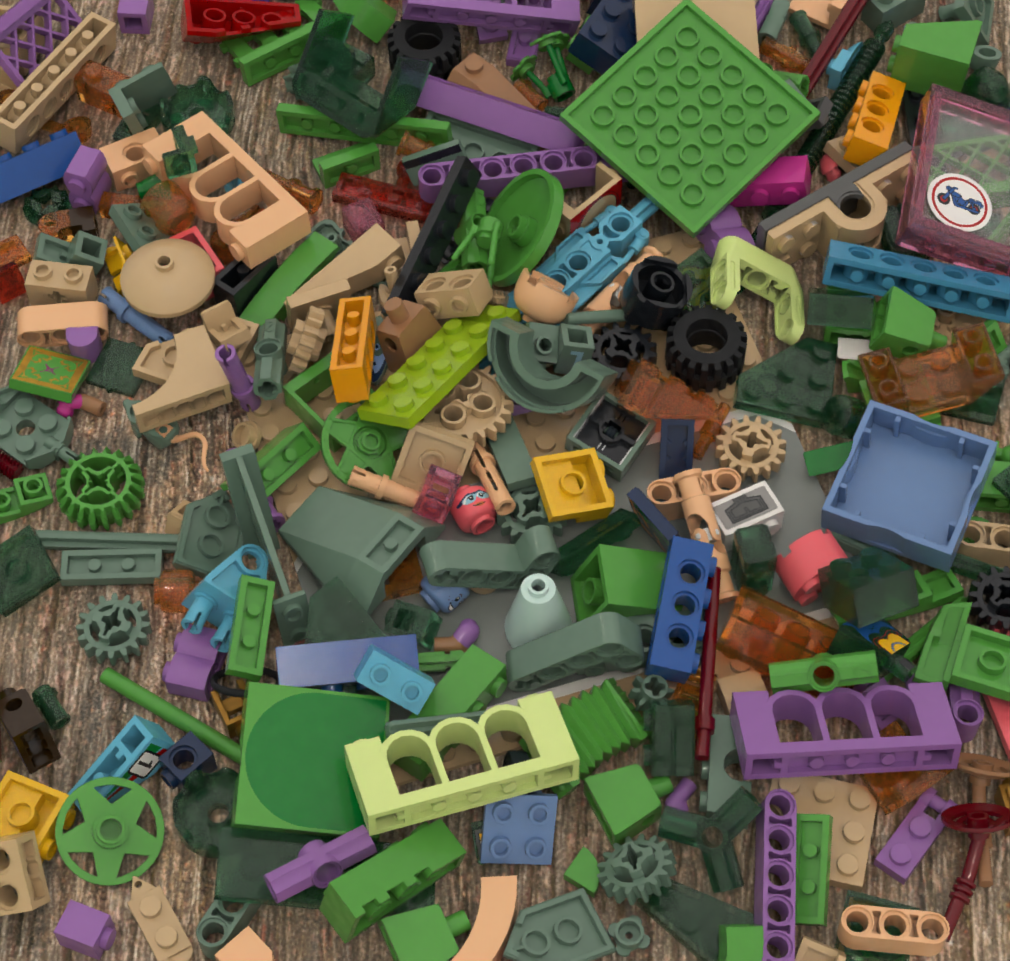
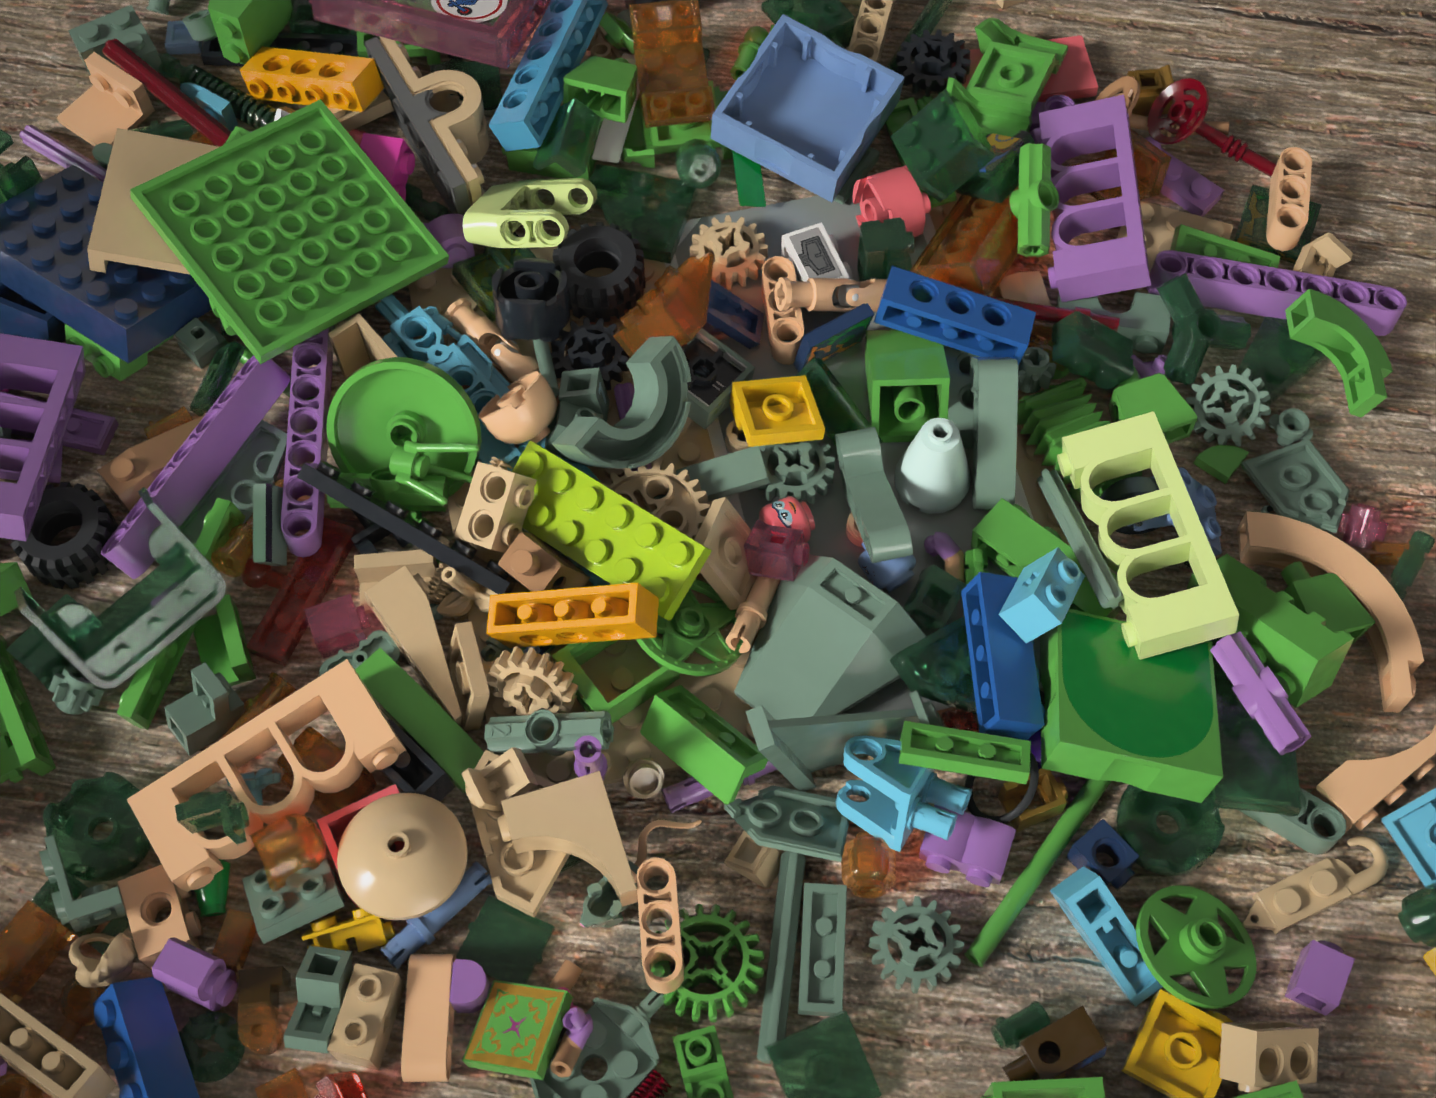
camera: 85 degrees left, 5 degrees up
(34, 405) = (578, 1031): none -> arm
(98, 135) = (114, 964): none -> tan piece
(99, 439) = (658, 904): none -> light nougat beam
(287, 153) = (204, 712): none -> sand green brick
(500, 498) = (764, 493): light nougat pin -> none
(559, 83) = (162, 390): plant -> none

